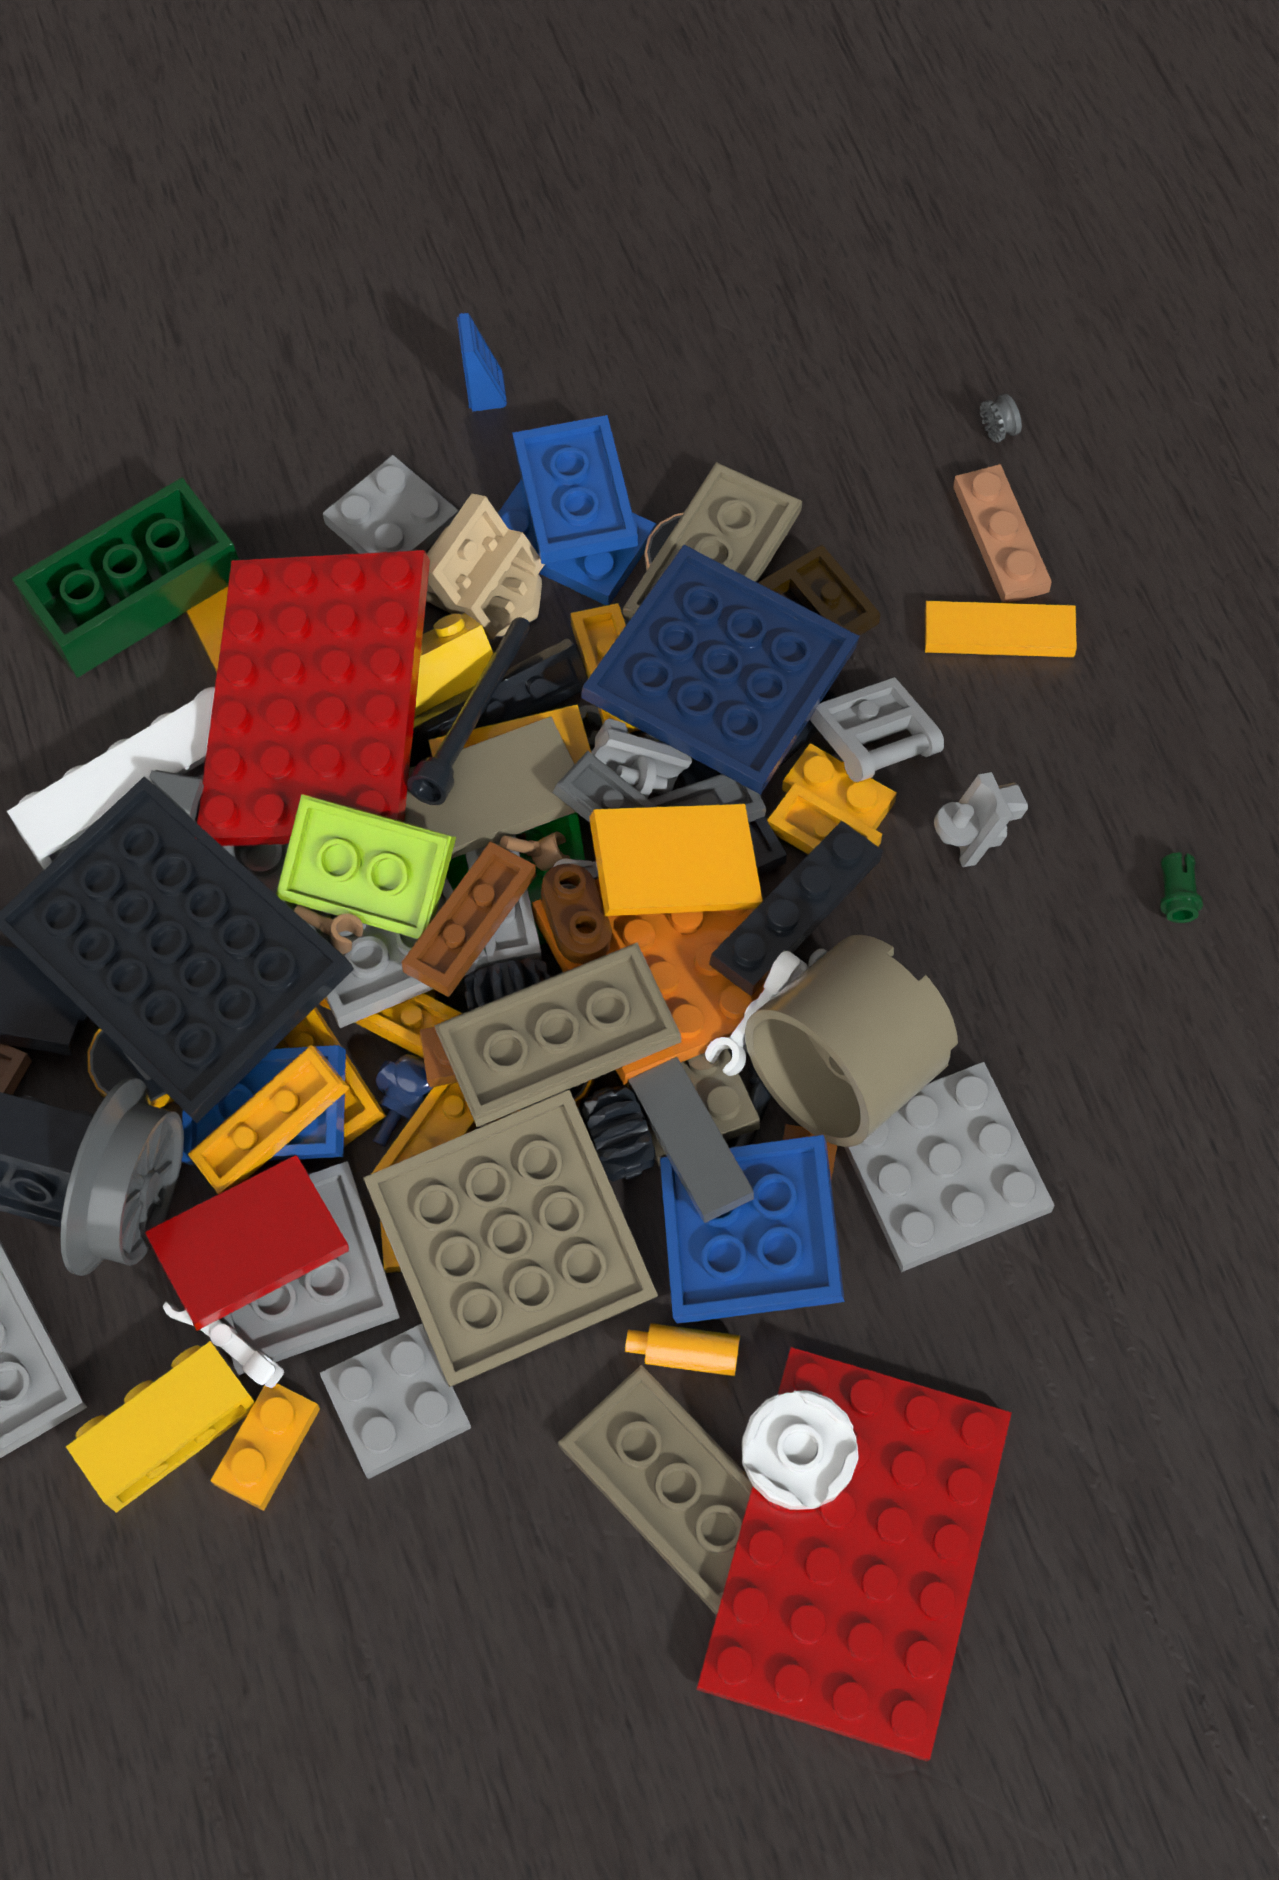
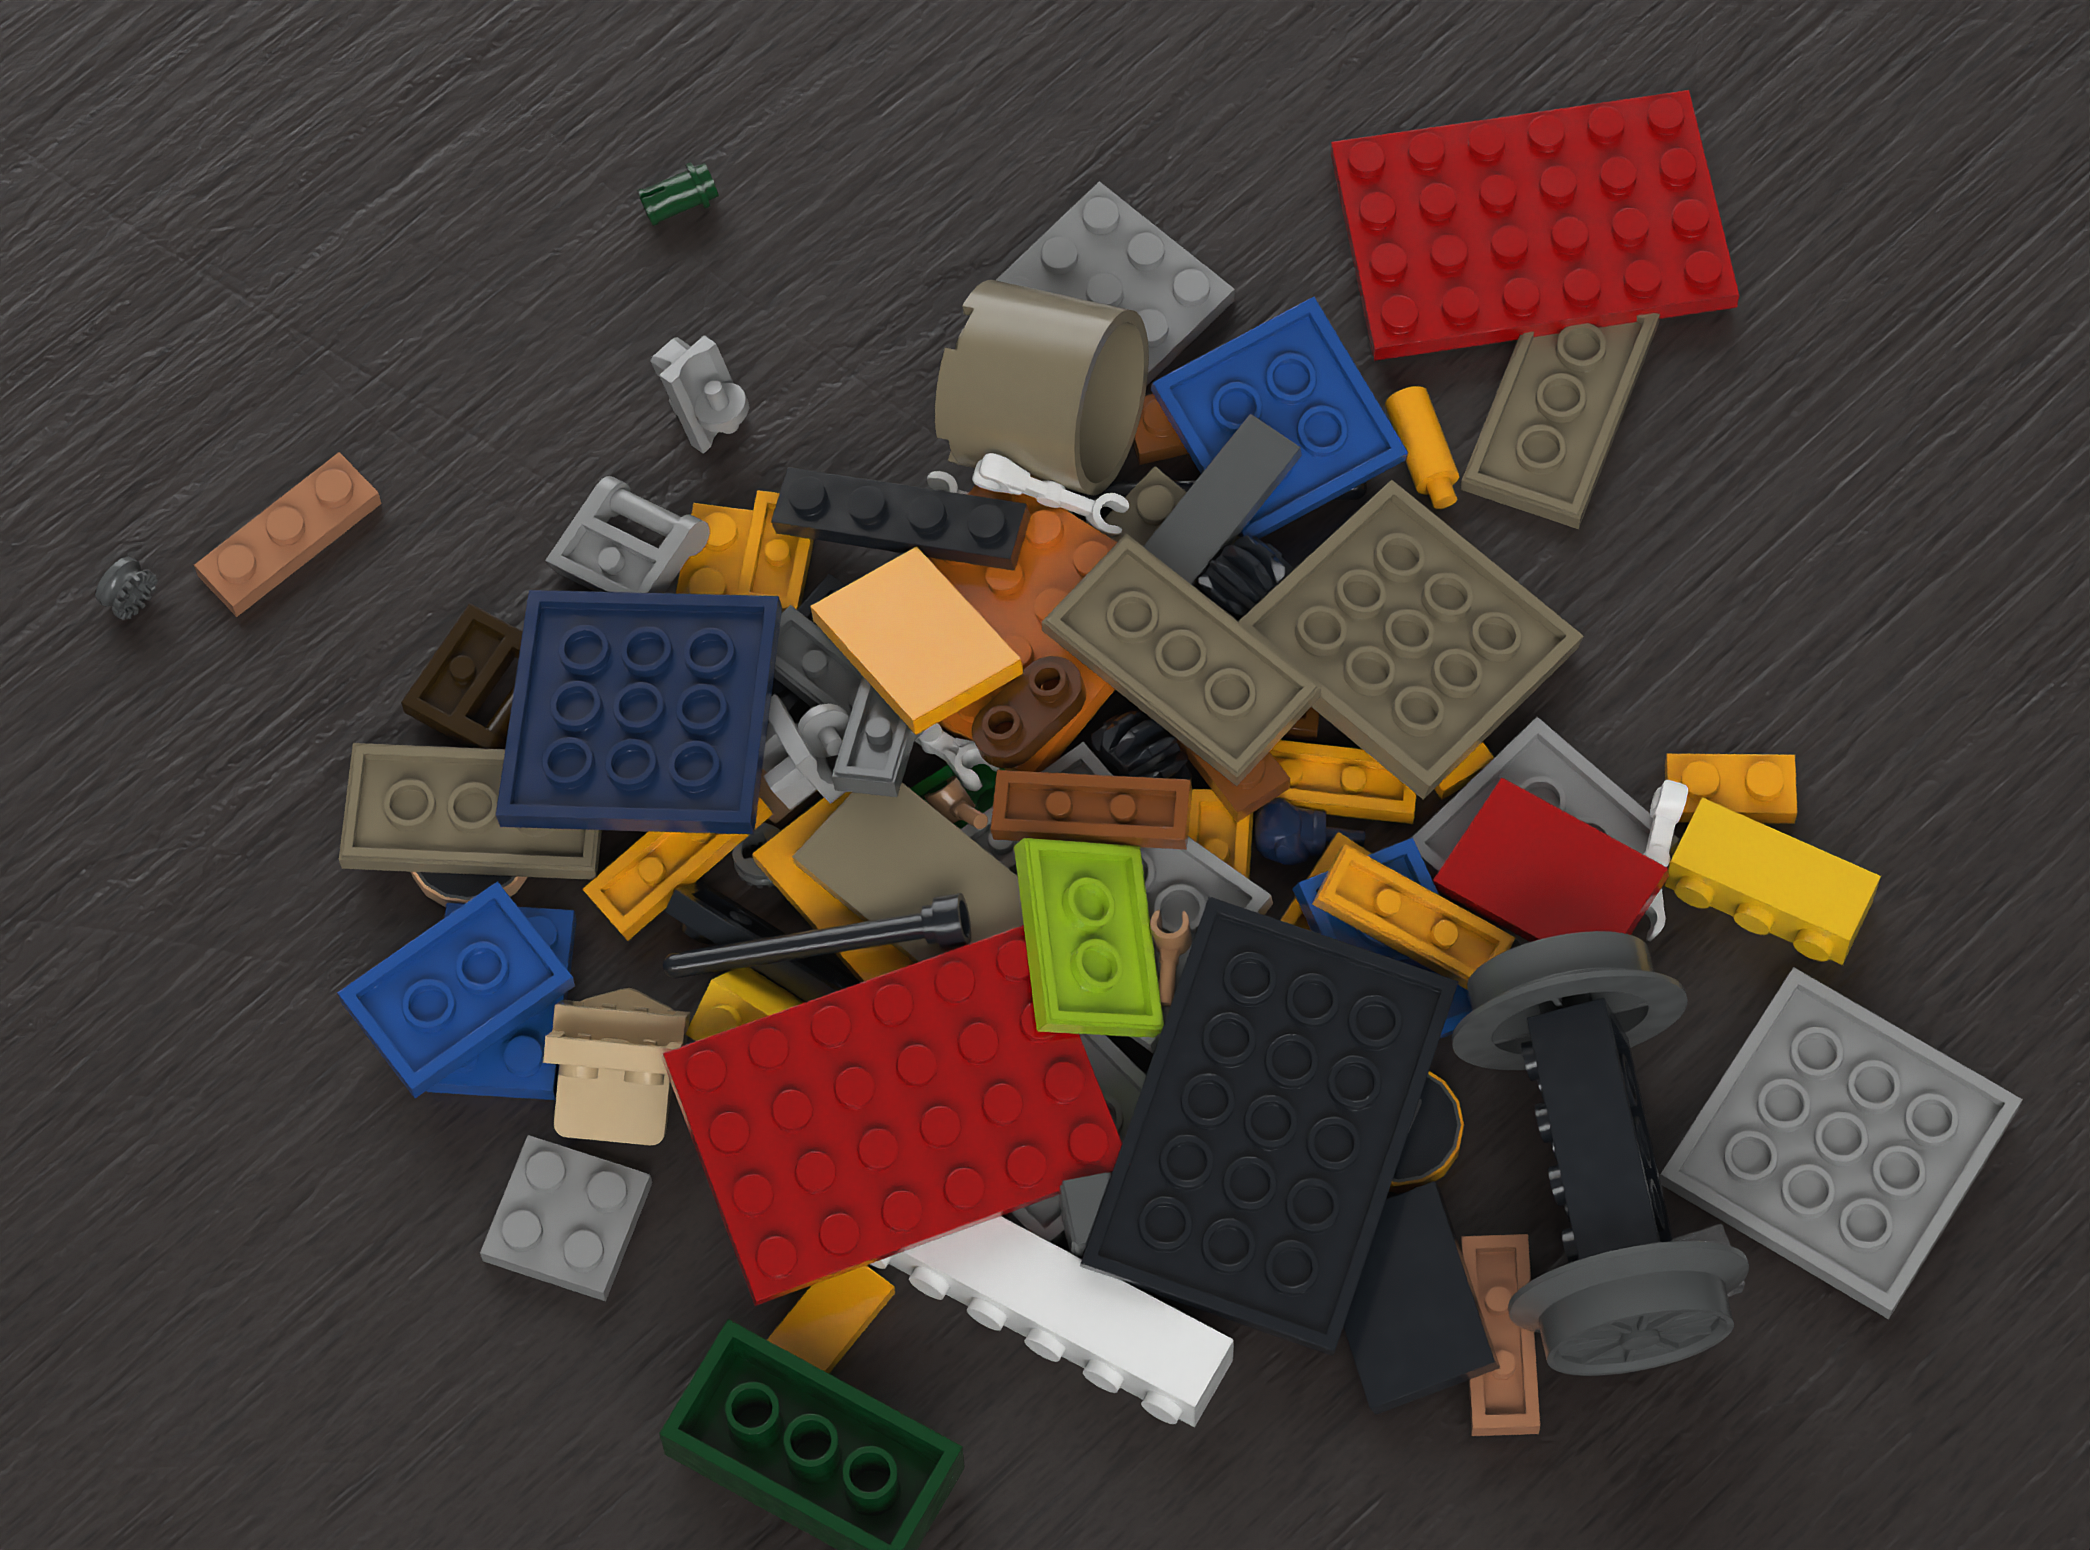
camera: 115 degrees left, 0 degrees up
(394, 1401) = (1620, 690): light grey plate -> none
(481, 369) = (318, 1199): blue slope -> none
(799, 1450) = (1477, 288): white tile -> none
(1000, 629) = (423, 487): light orange tile -> none

